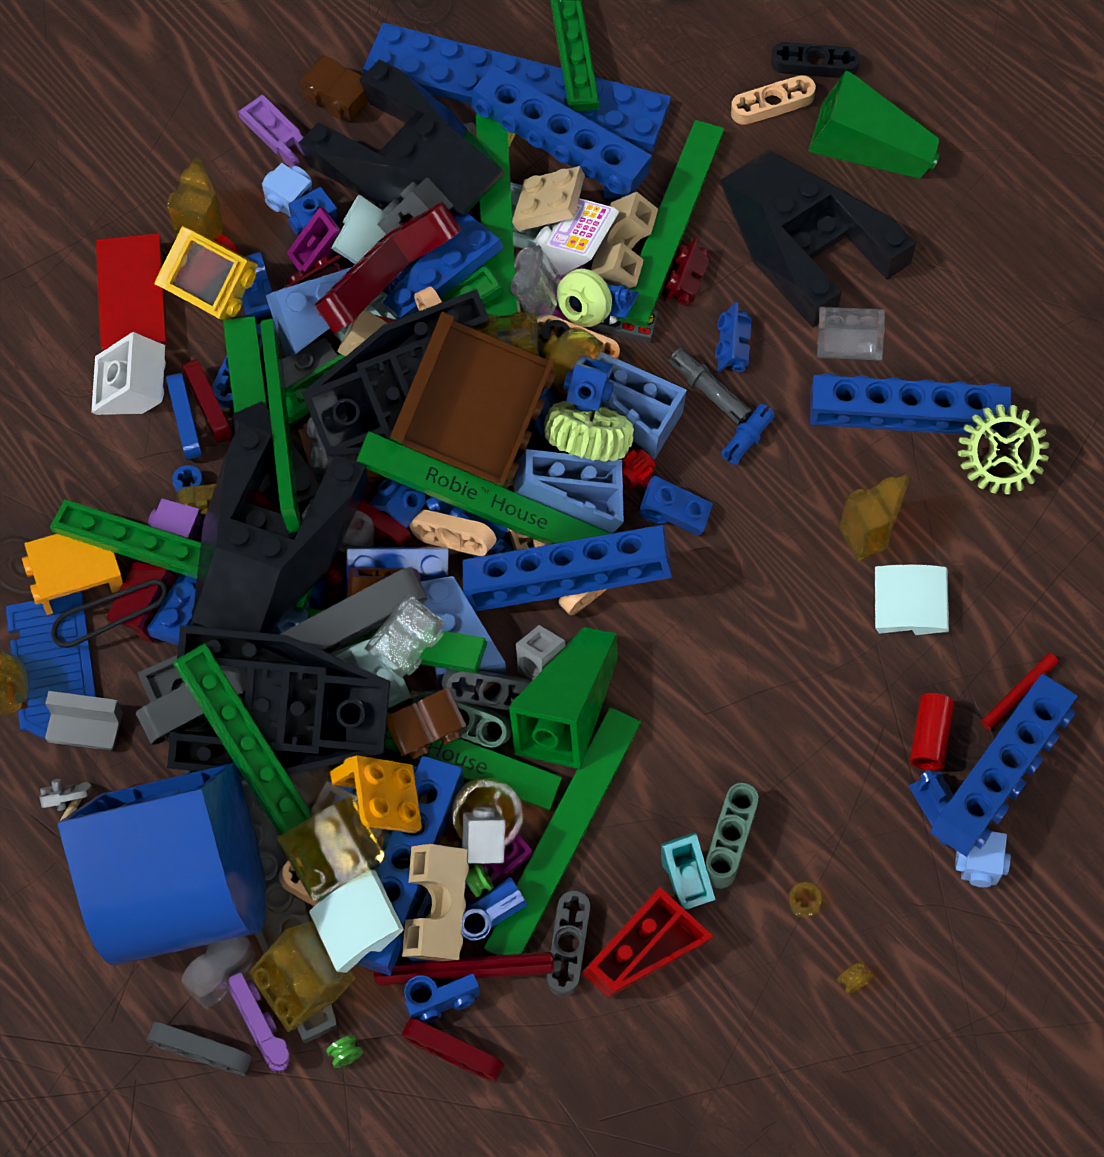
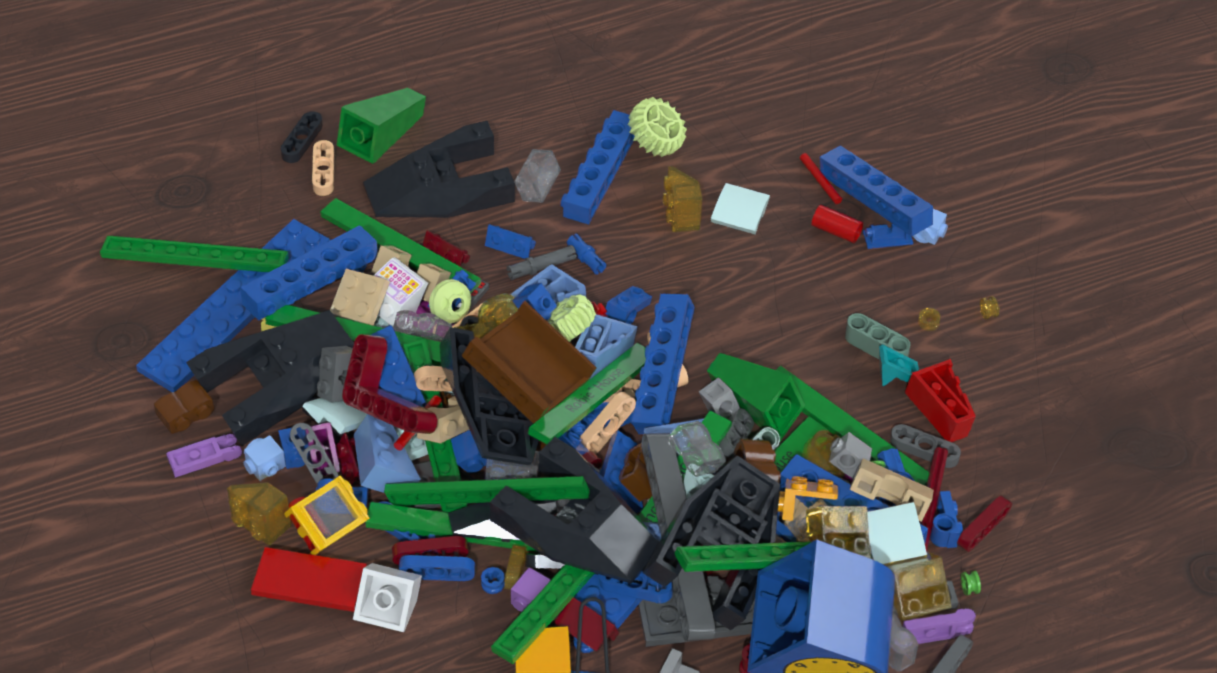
camera: 75 degrees left, 15 degrees down
(281, 239) = (311, 435): none -> dark grey beam

